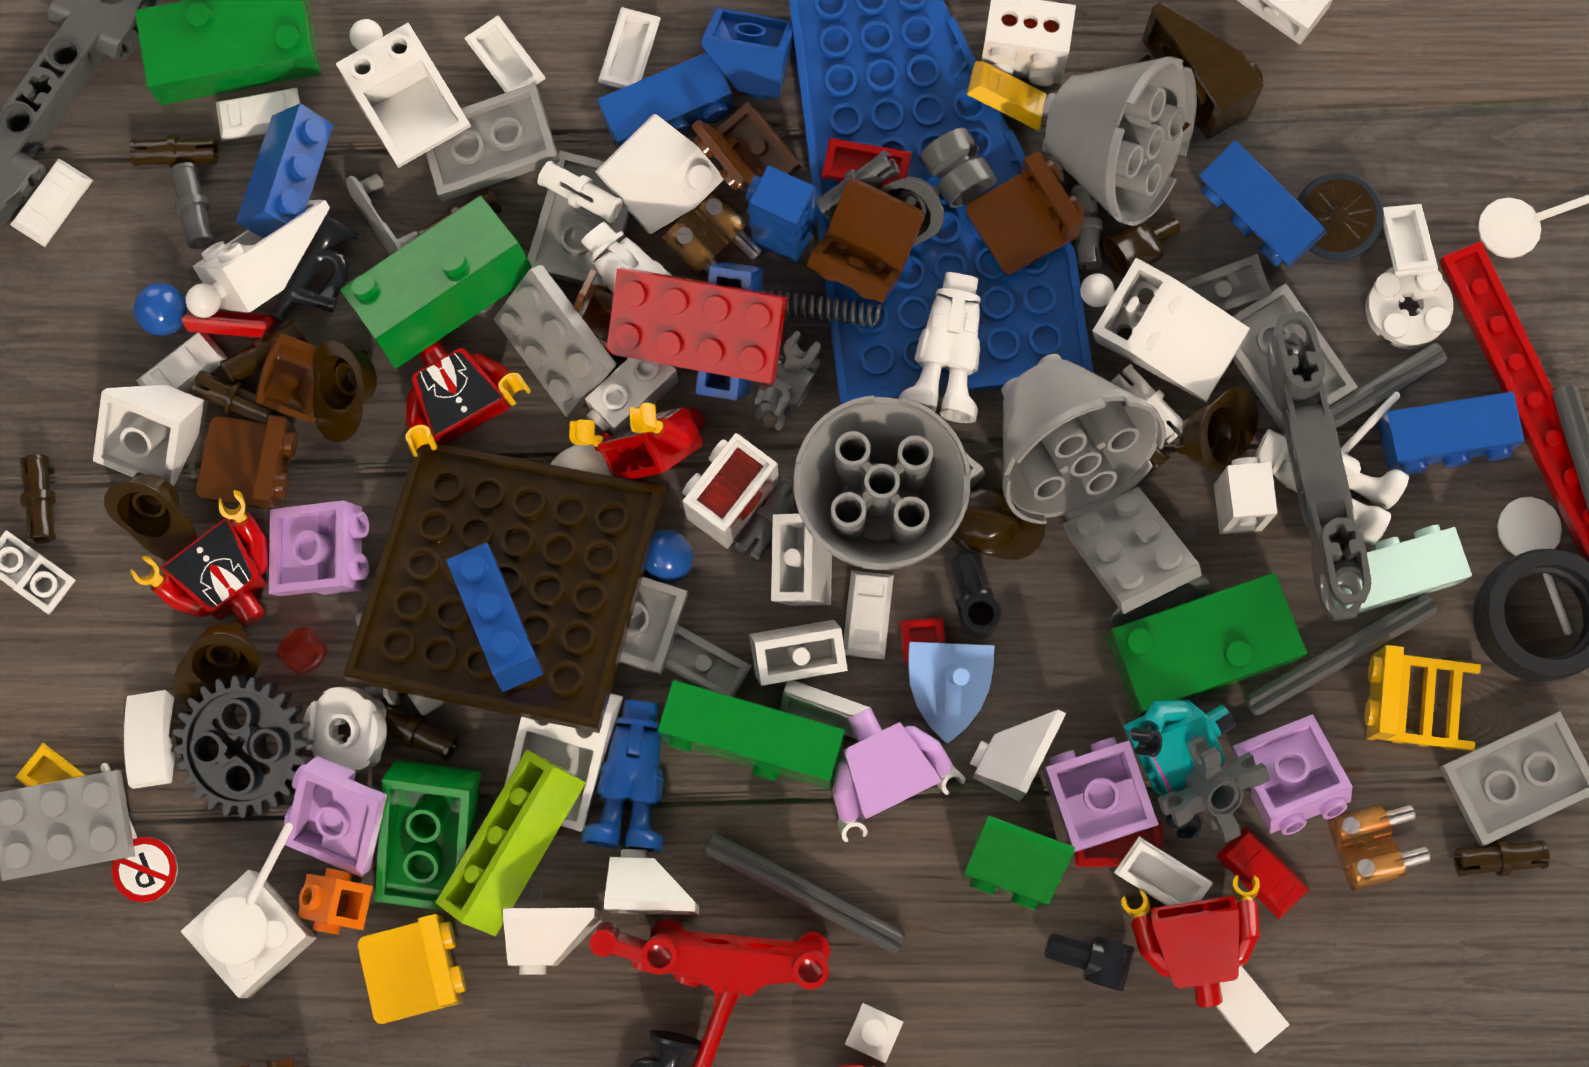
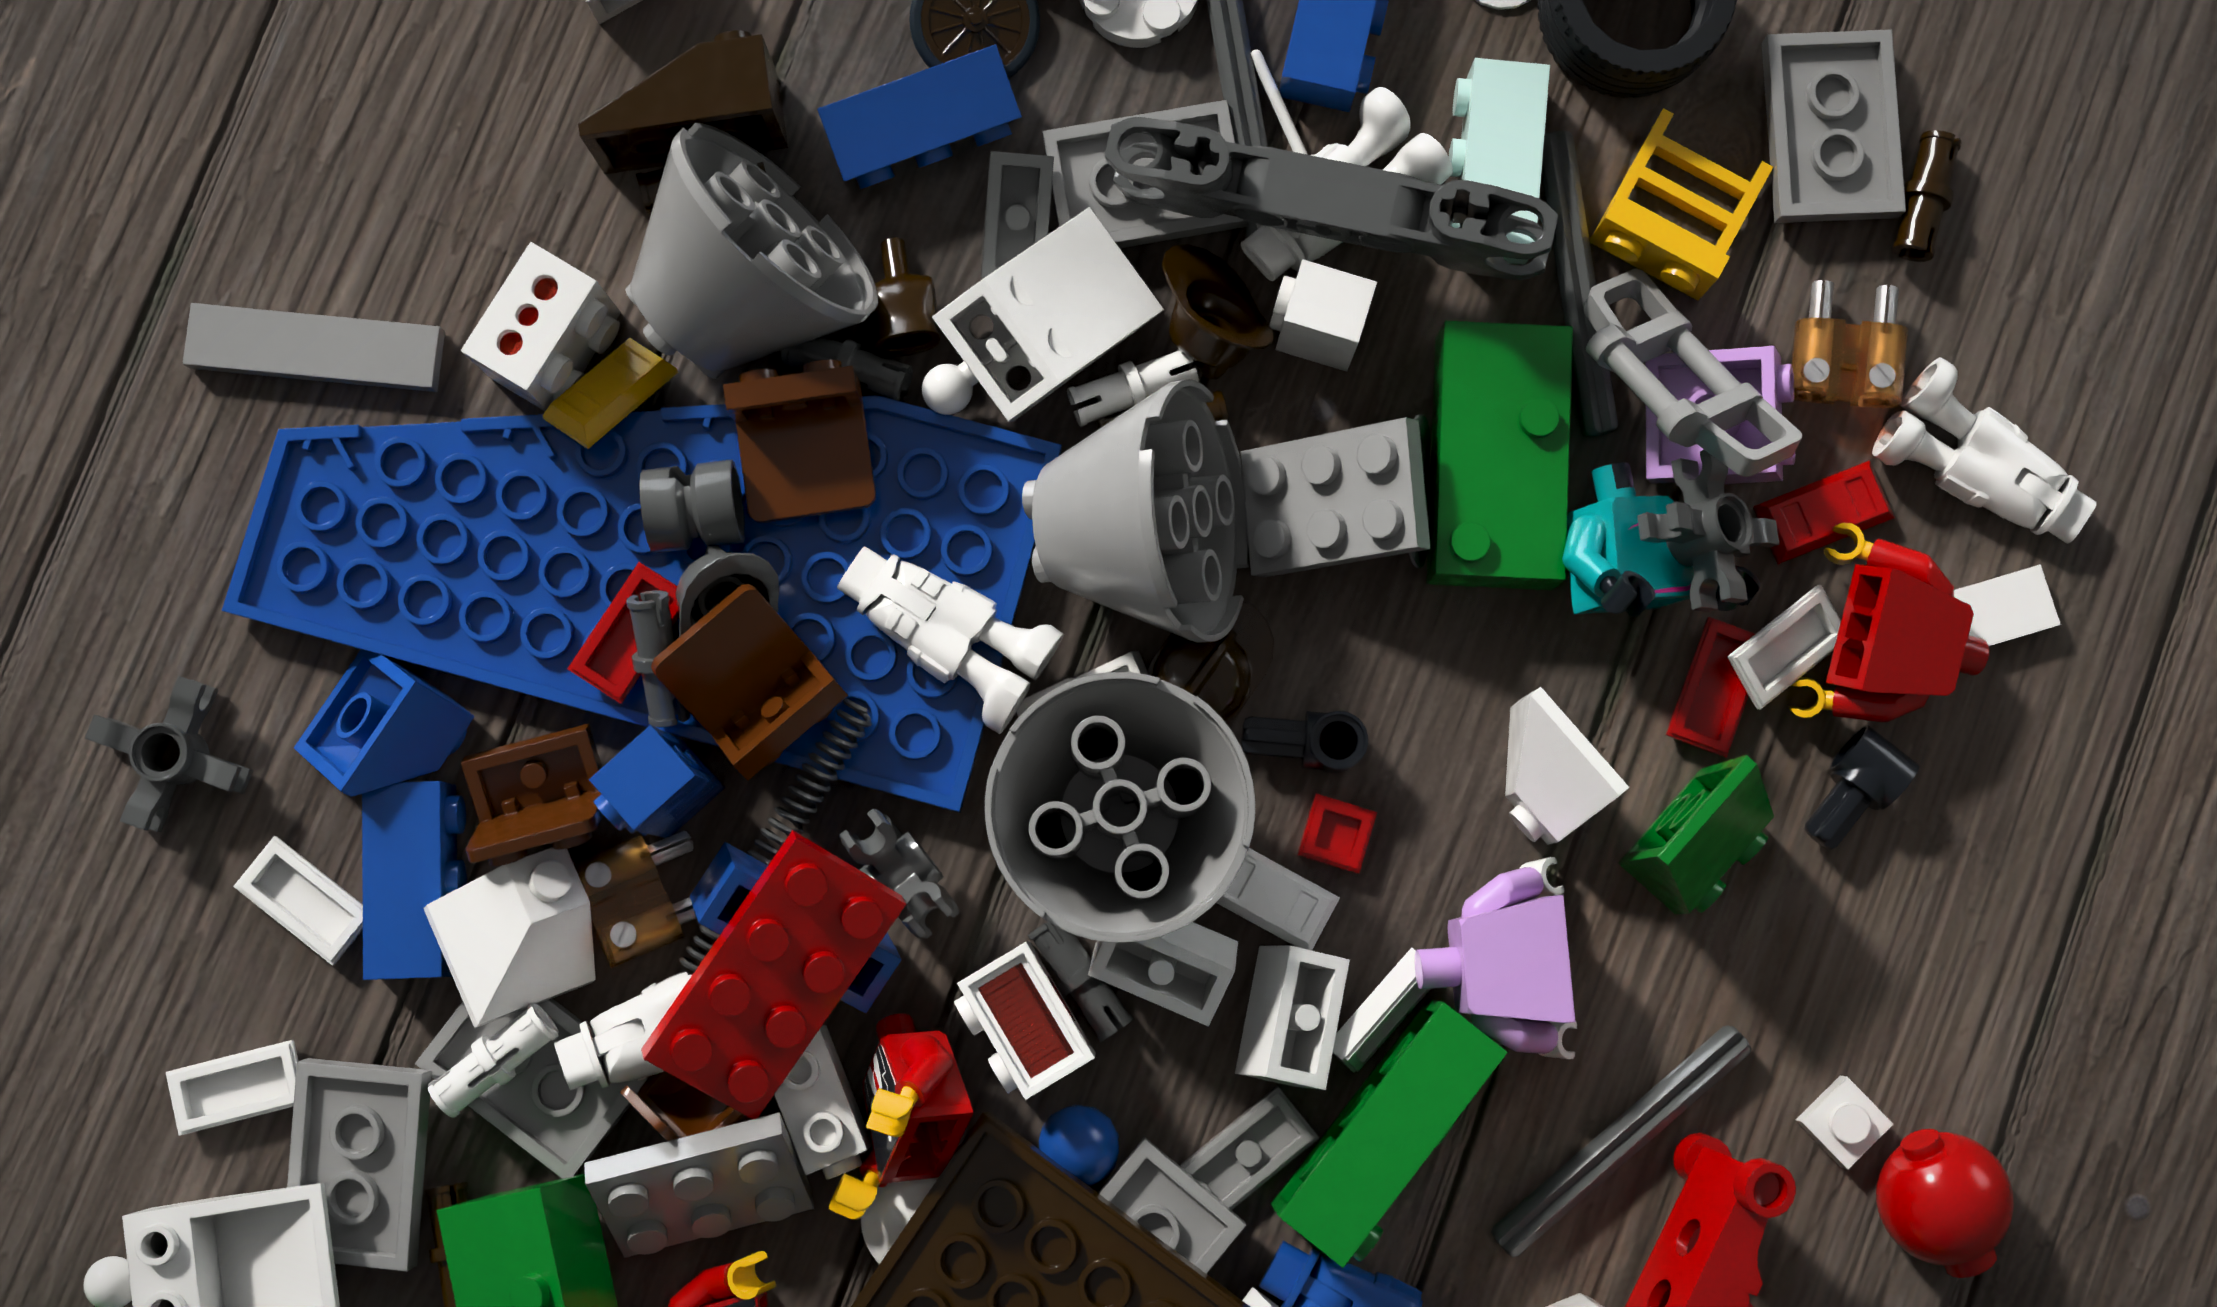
camera: 70 degrees left, 5 degrees up
(949, 683) = (1411, 822): light blue shield -> none
(1099, 794) = (1647, 684): lavender plate -> none
(1274, 740) = (1683, 419): none -> light grey bar
(1342, 968) = (1993, 458): none -> white piece

